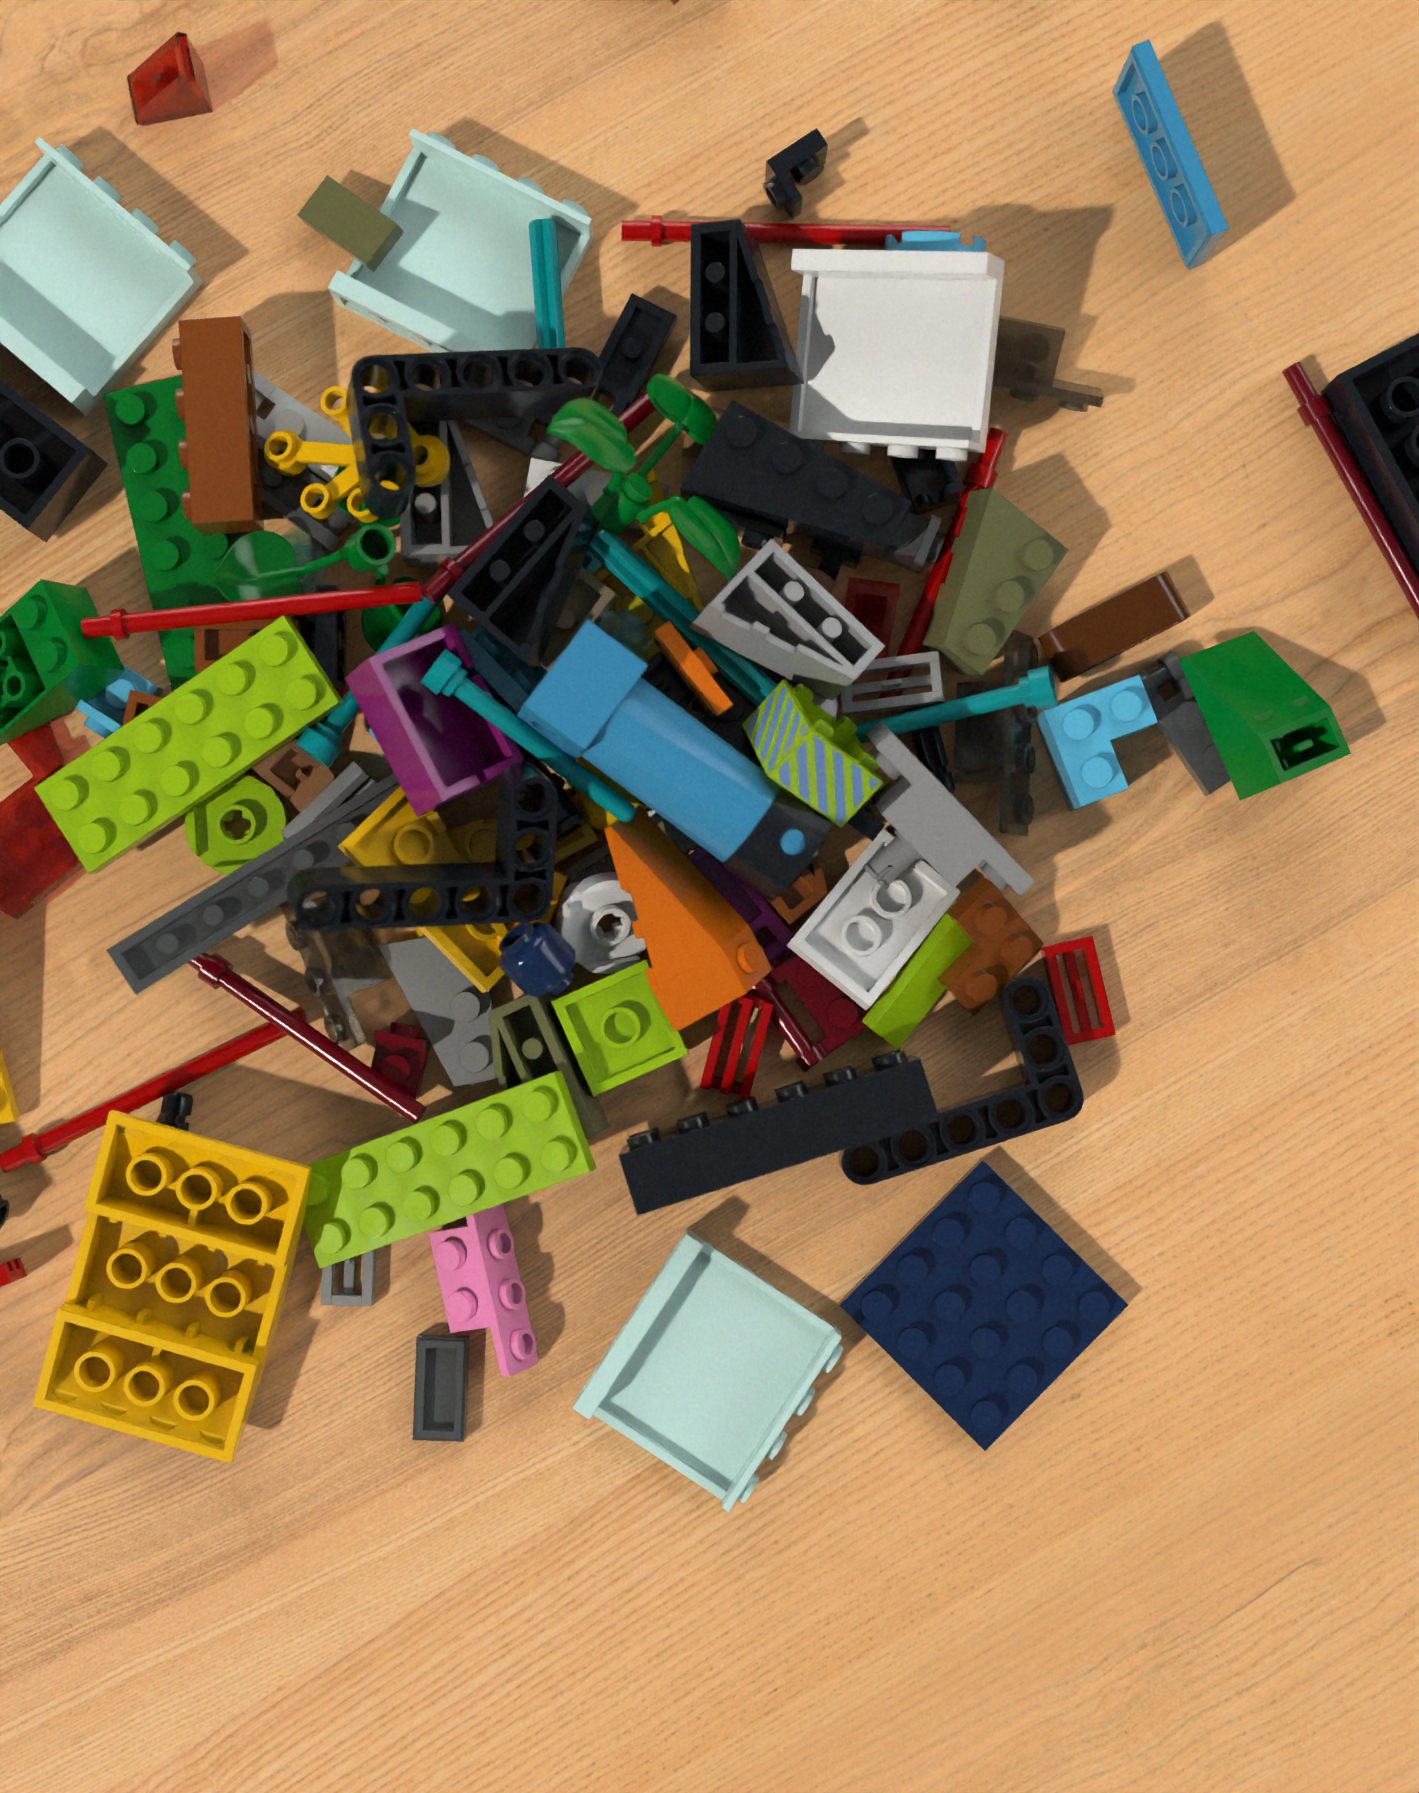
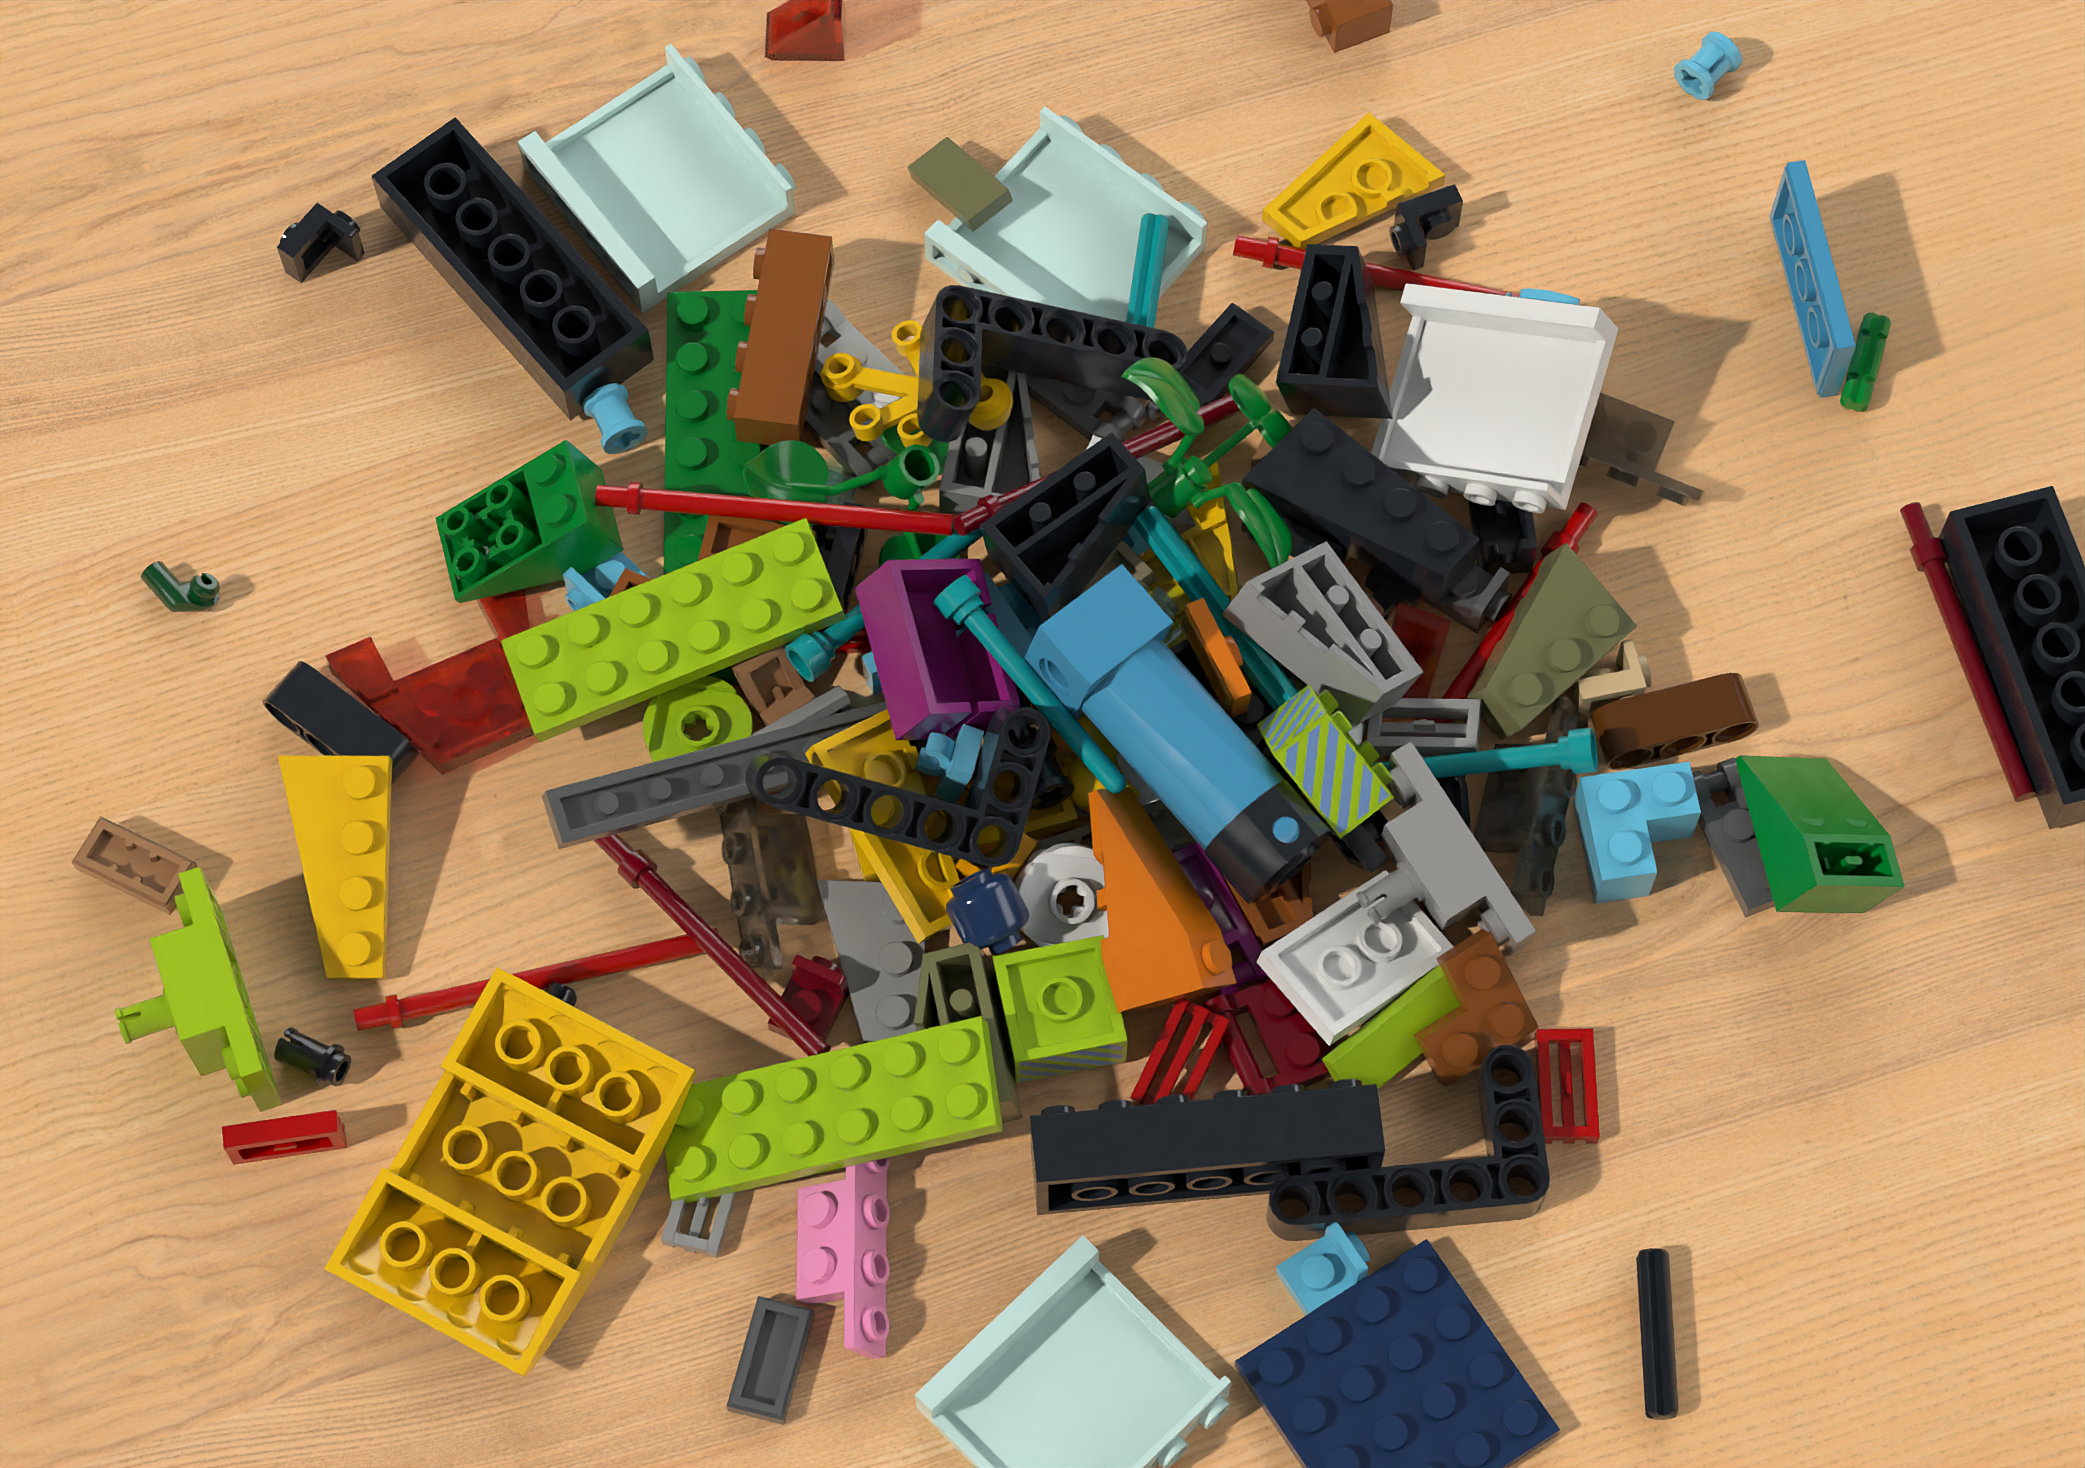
camera: 10 degrees right, 20 degrees down
(85, 534) = (614, 418): none -> medium azure bush
(473, 820) = (951, 760): none -> medium azure tile
(717, 144) = (1351, 184): none -> yellow wing
(899, 1206) = (1324, 1268): none -> medium azure bracket
(1050, 611) = (1607, 686): none -> tan bracket
(1195, 1199) = (1657, 1334): none -> black axle
(1225, 257) = (1865, 362): none -> green axle

